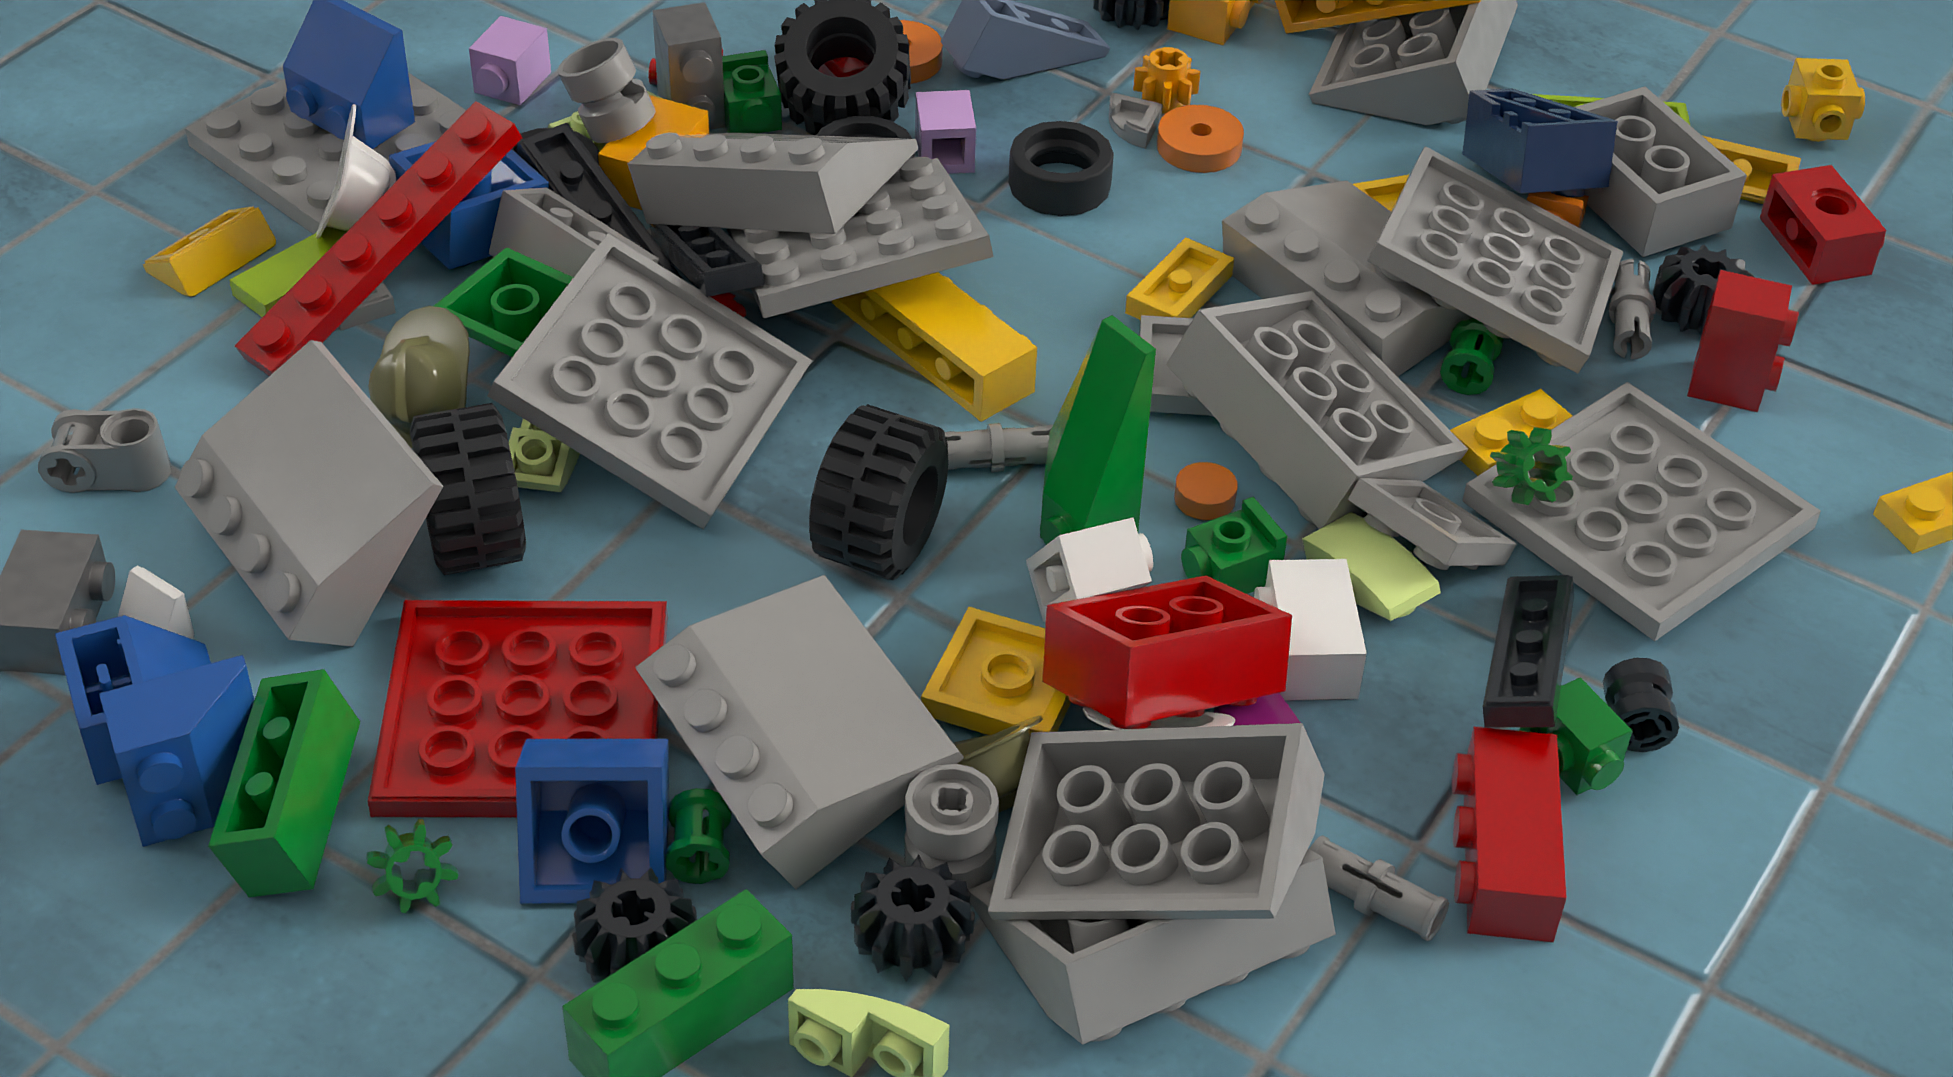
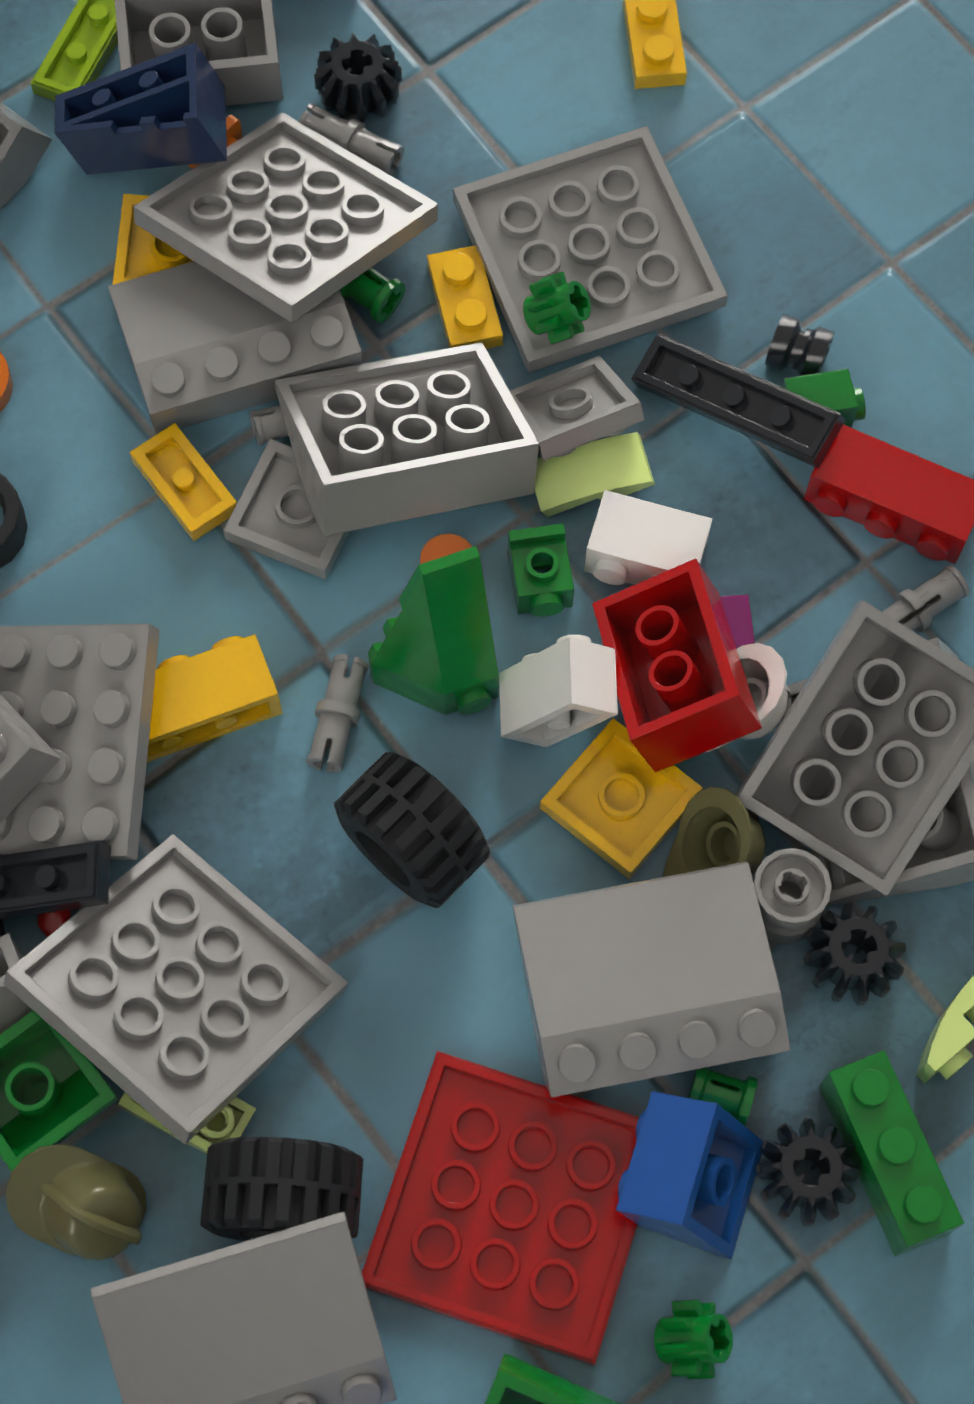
camera: 70 degrees left, 25 degrees up
(1741, 341) = (455, 84): red brick -> none

